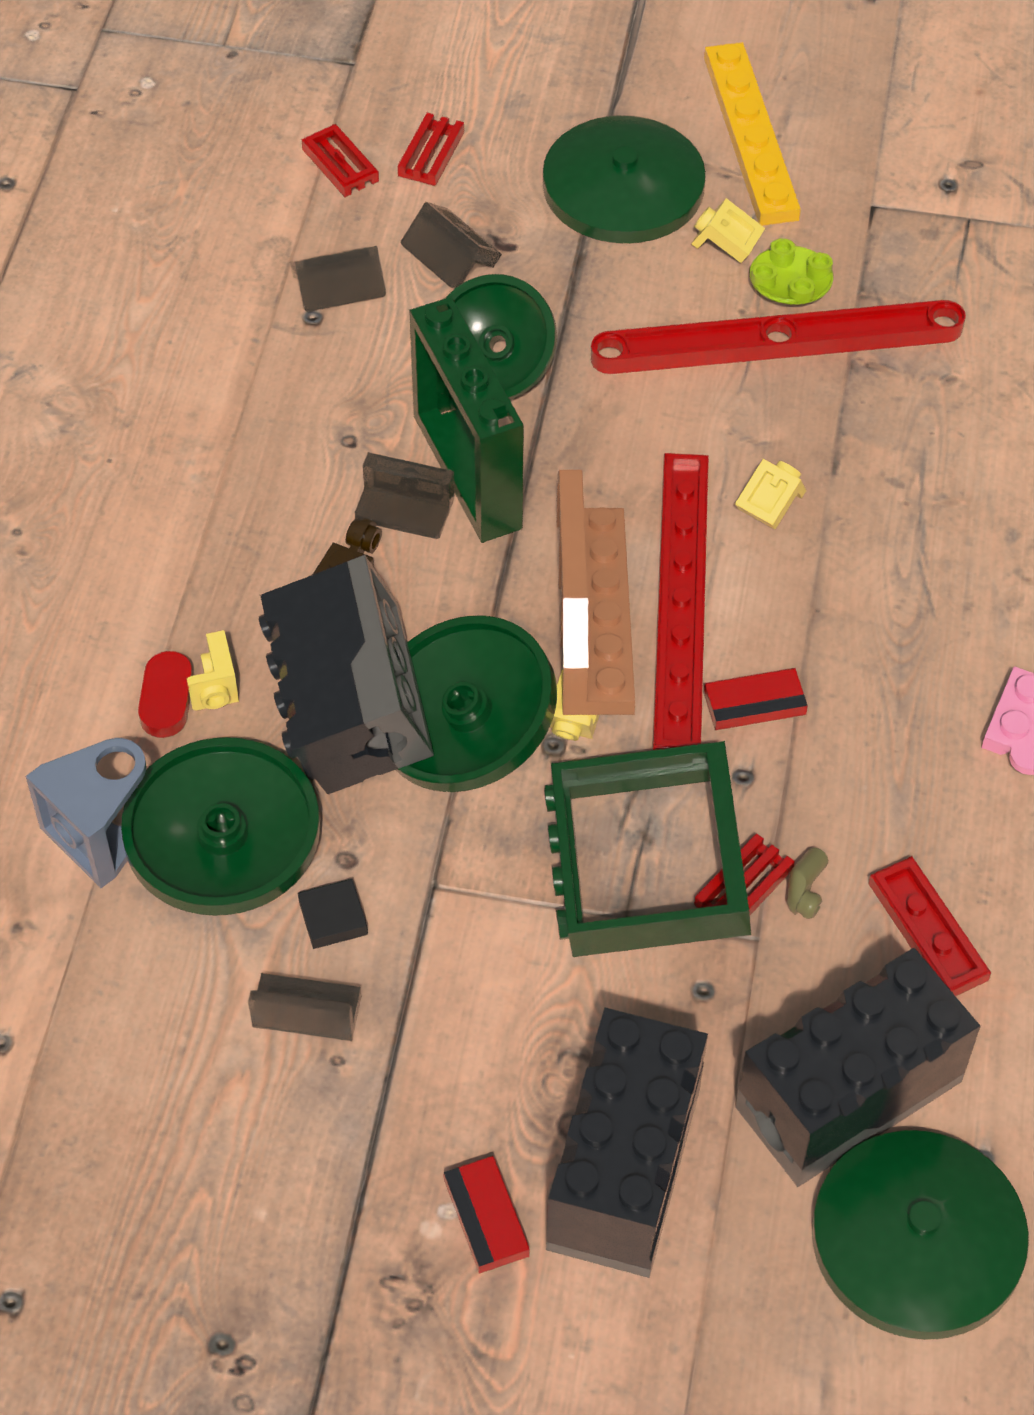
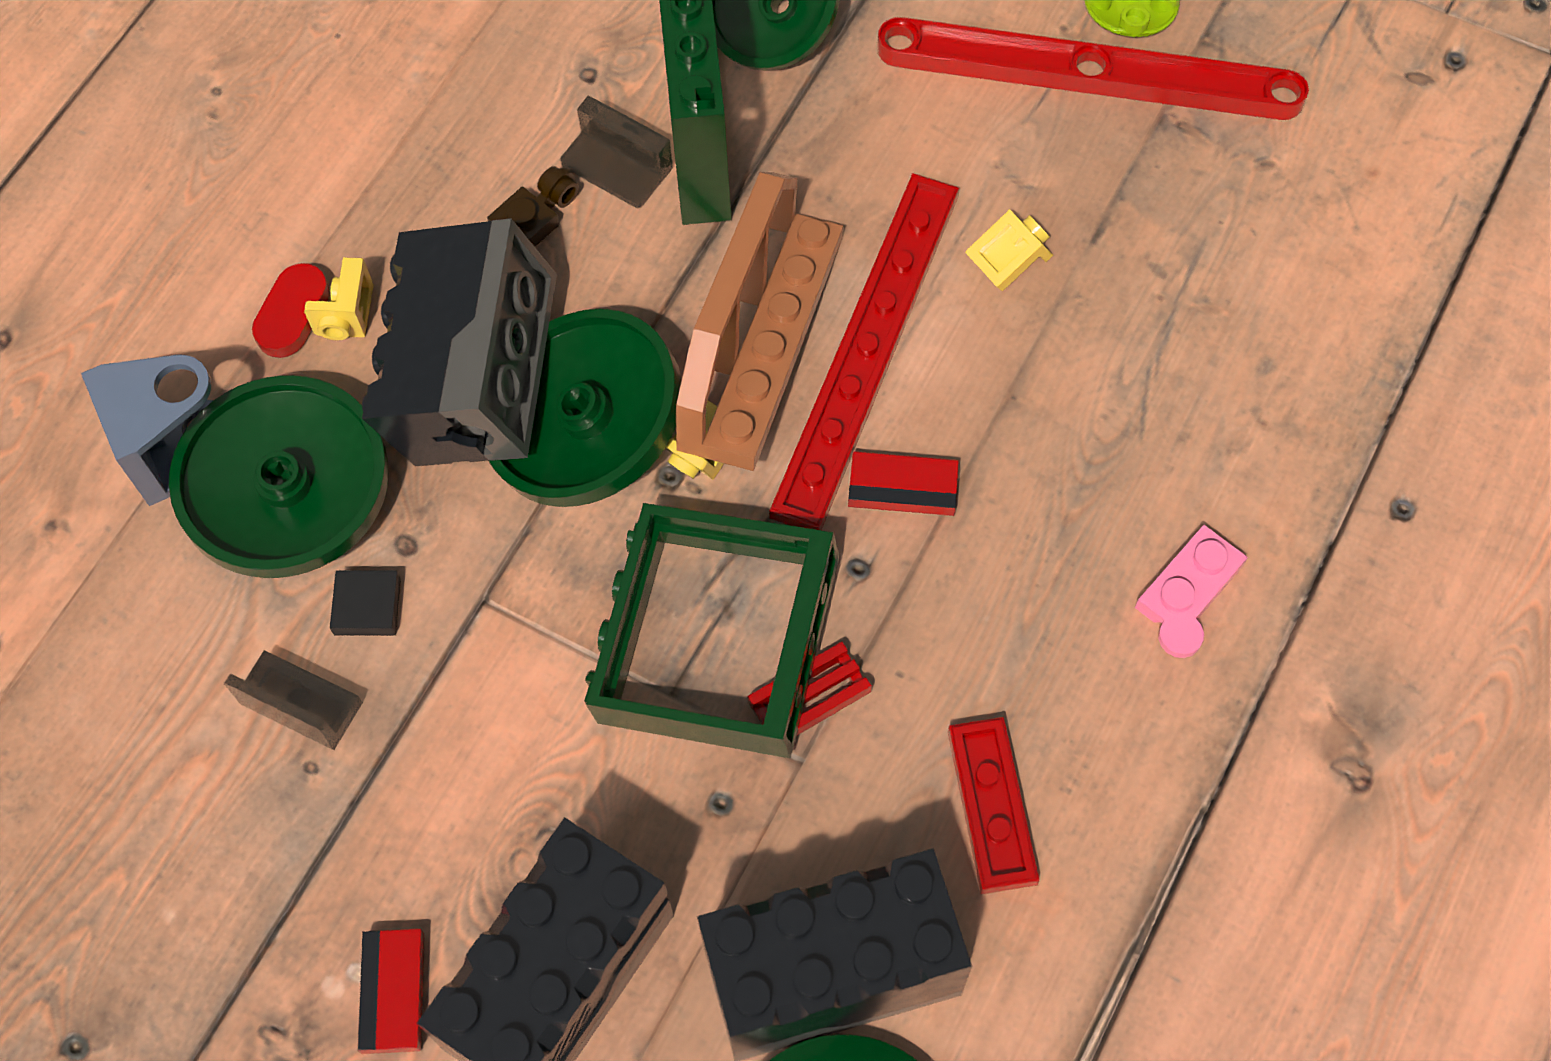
camera: 20 degrees right, 10 degrees up
(802, 876) = (870, 709): olive arm -> none

